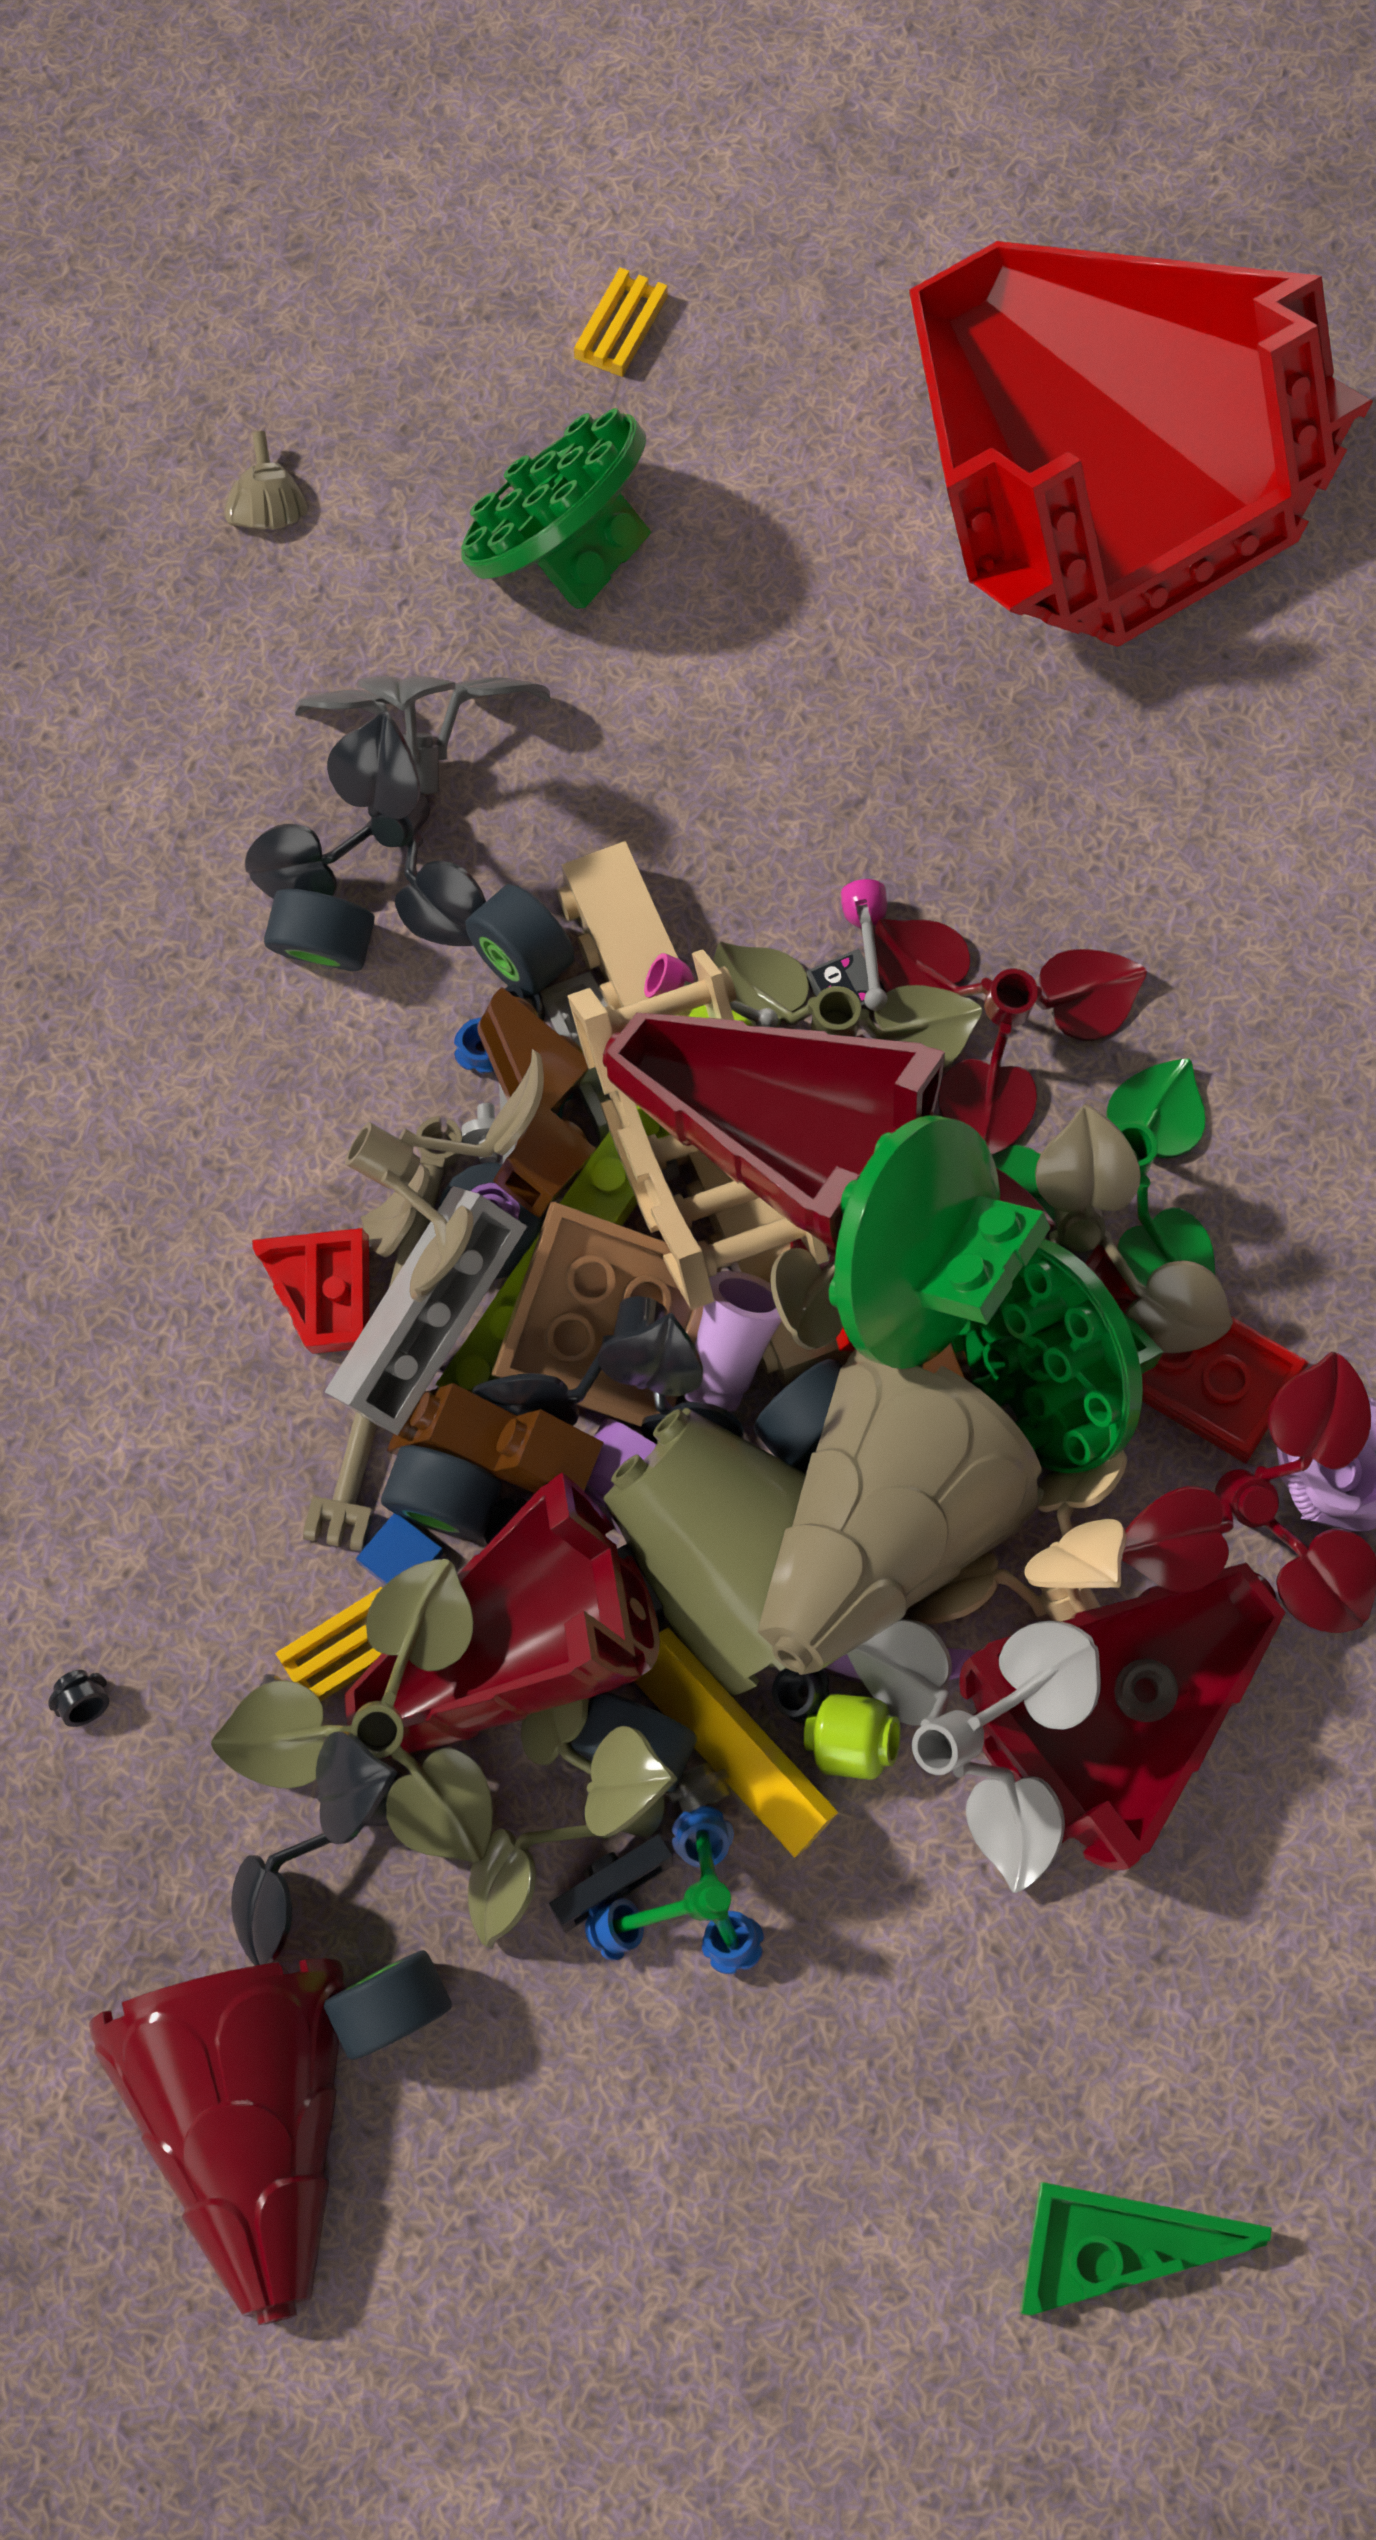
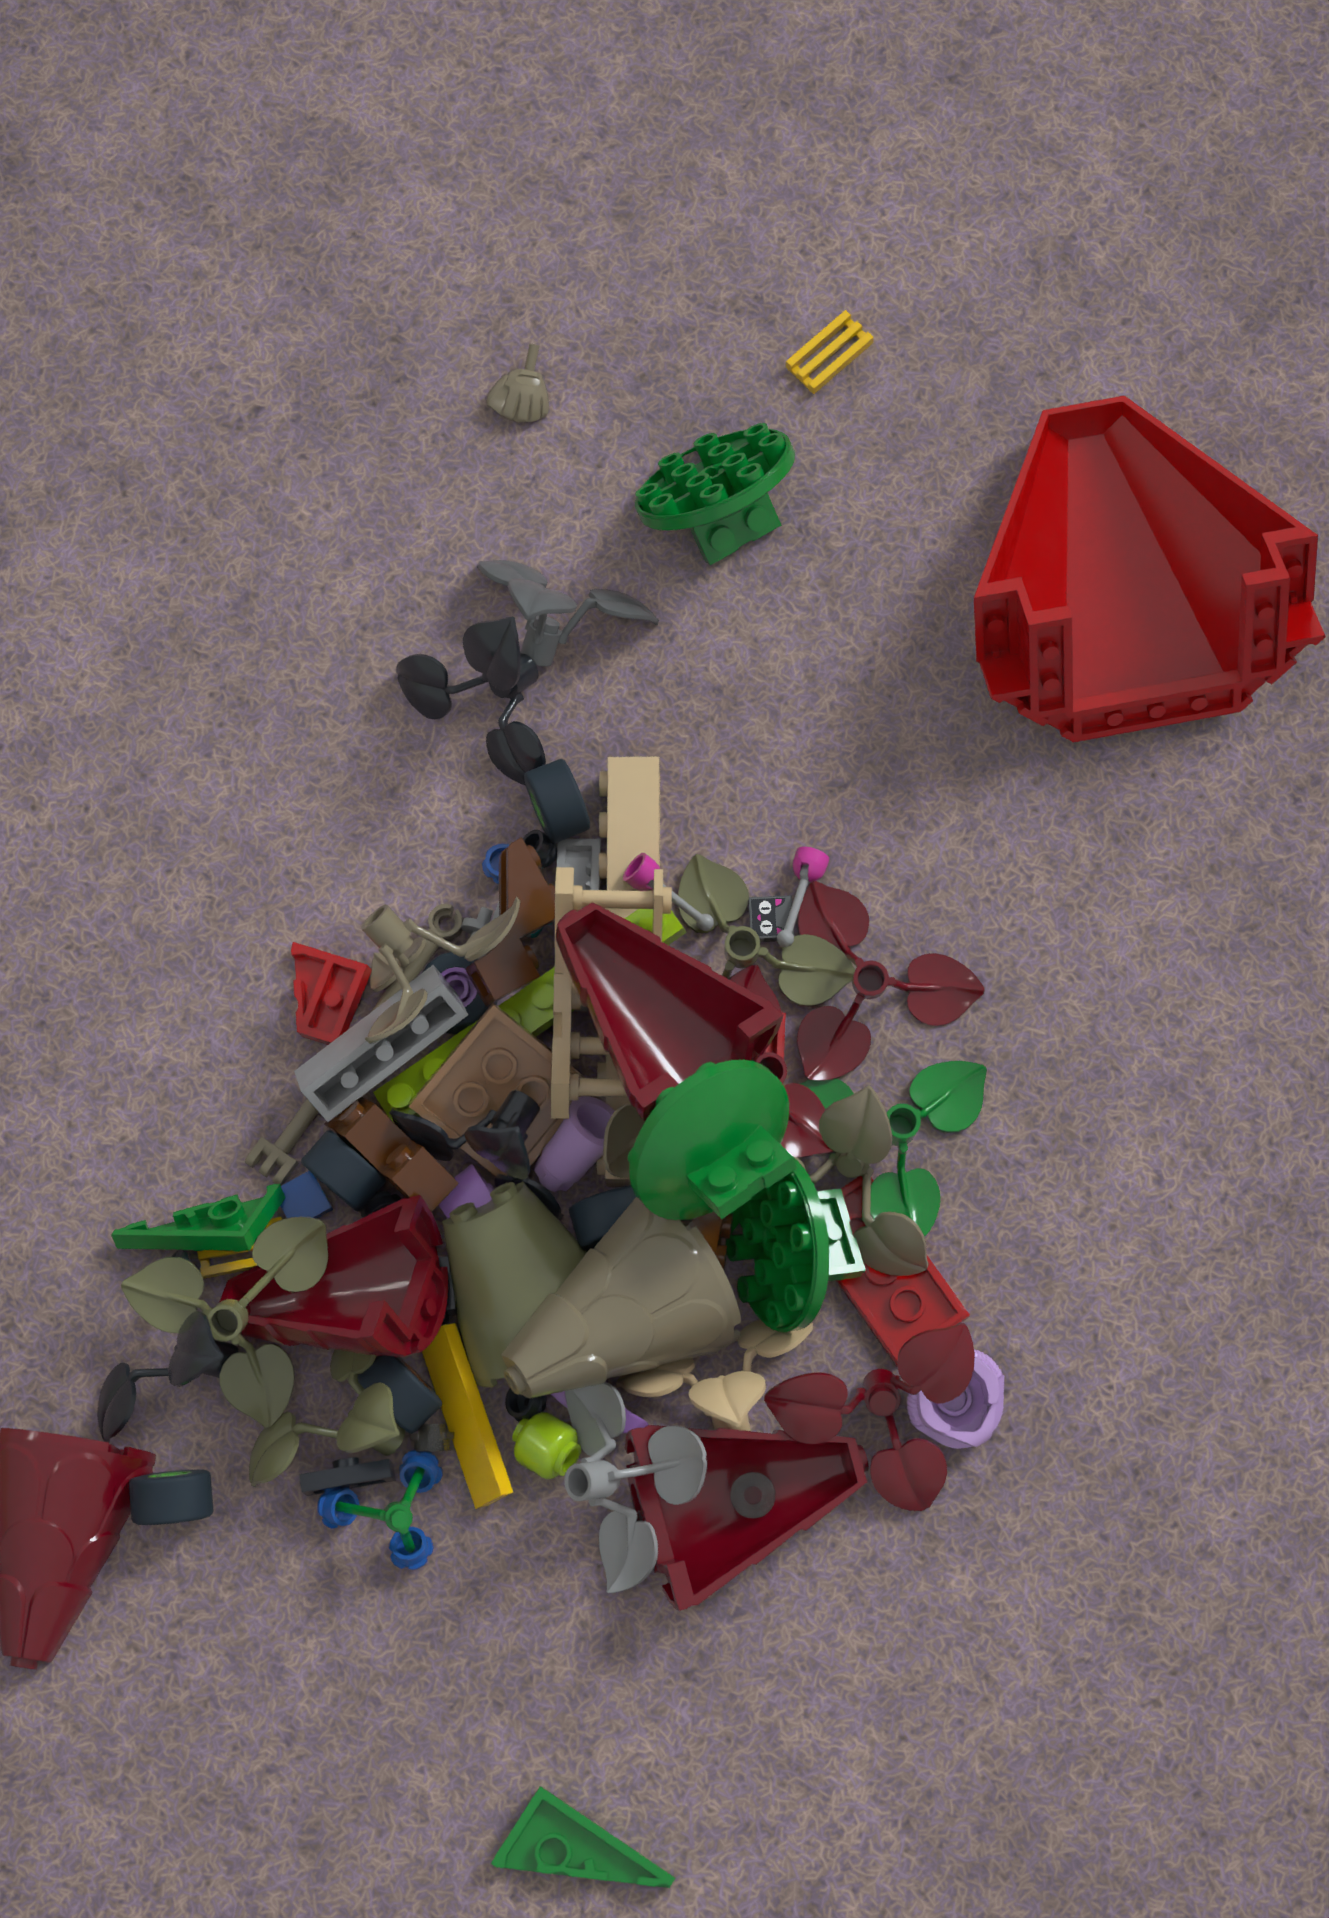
camera: 25 degrees right, 5 degrees up
(79, 1697) = (57, 1211): black plate -> none
(288, 1635) = (206, 1226): none -> green wing
(319, 929) = (424, 738): black wheel -> none

